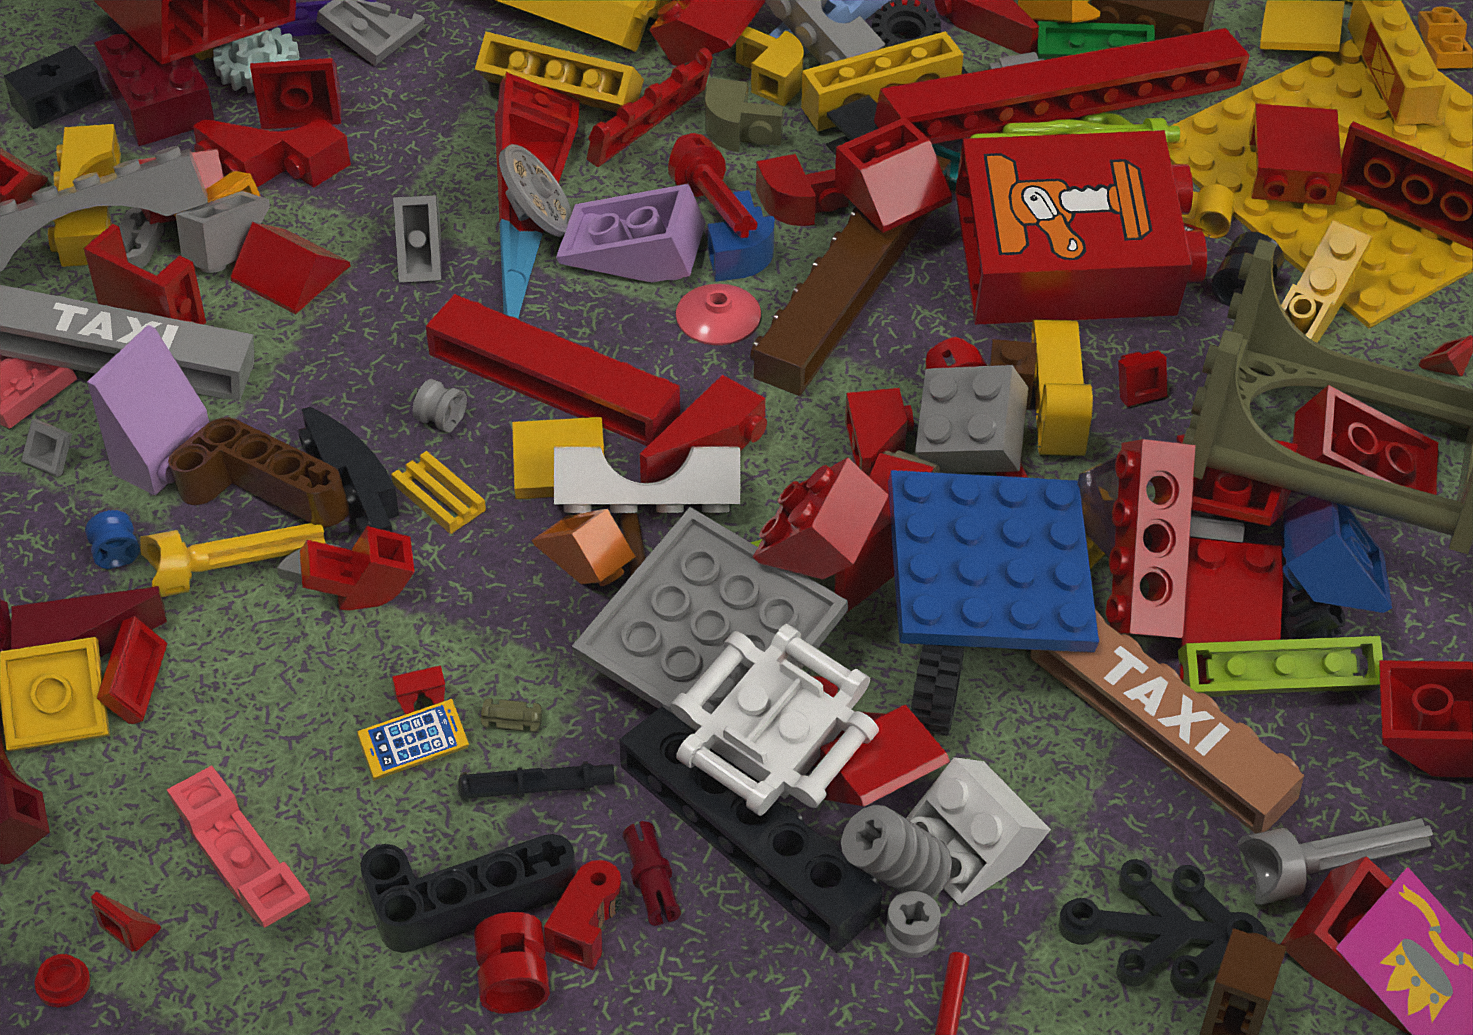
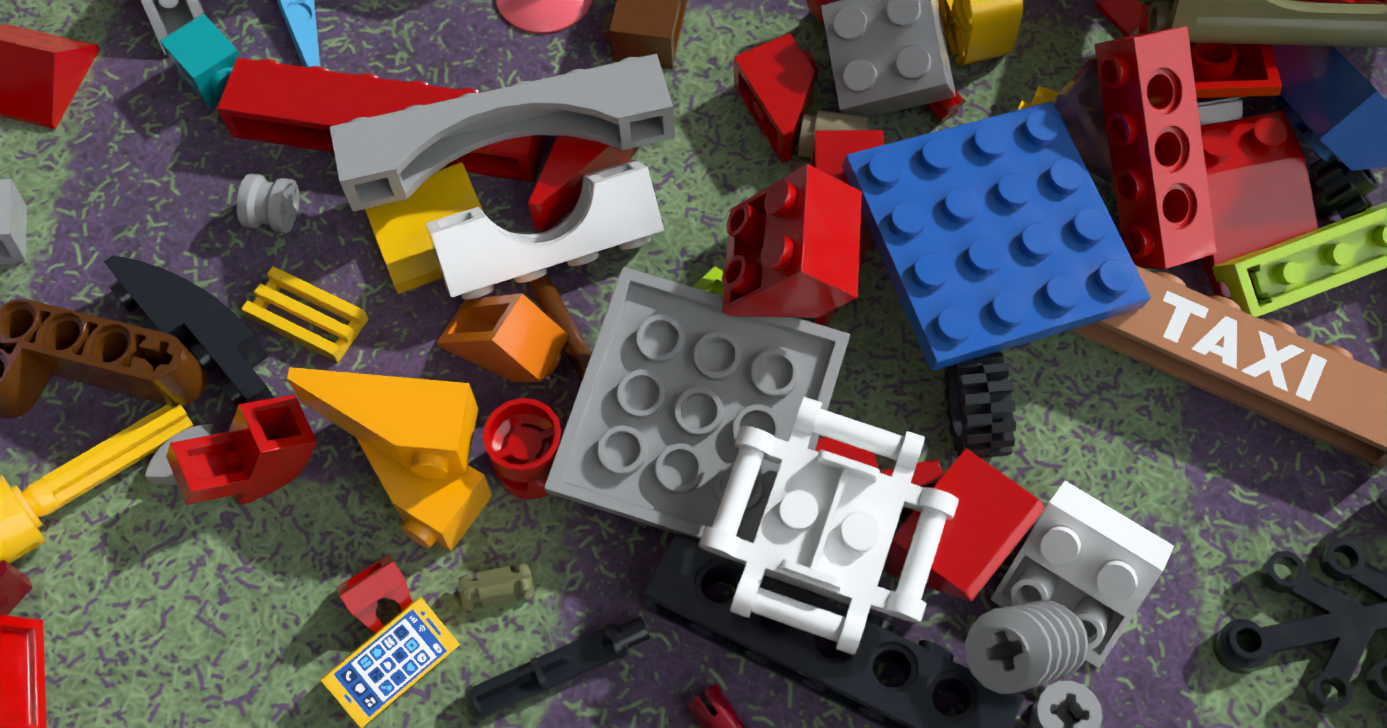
camera: 15 degrees left, 15 degrees up
(426, 288) = (202, 58): none -> teal brick
(484, 568) = (407, 419): none -> light orange slope
(486, 629) = (431, 507): none -> light orange slope
(550, 388) = (395, 152): none -> light grey arch
(564, 614) = (522, 446): none -> red wheel

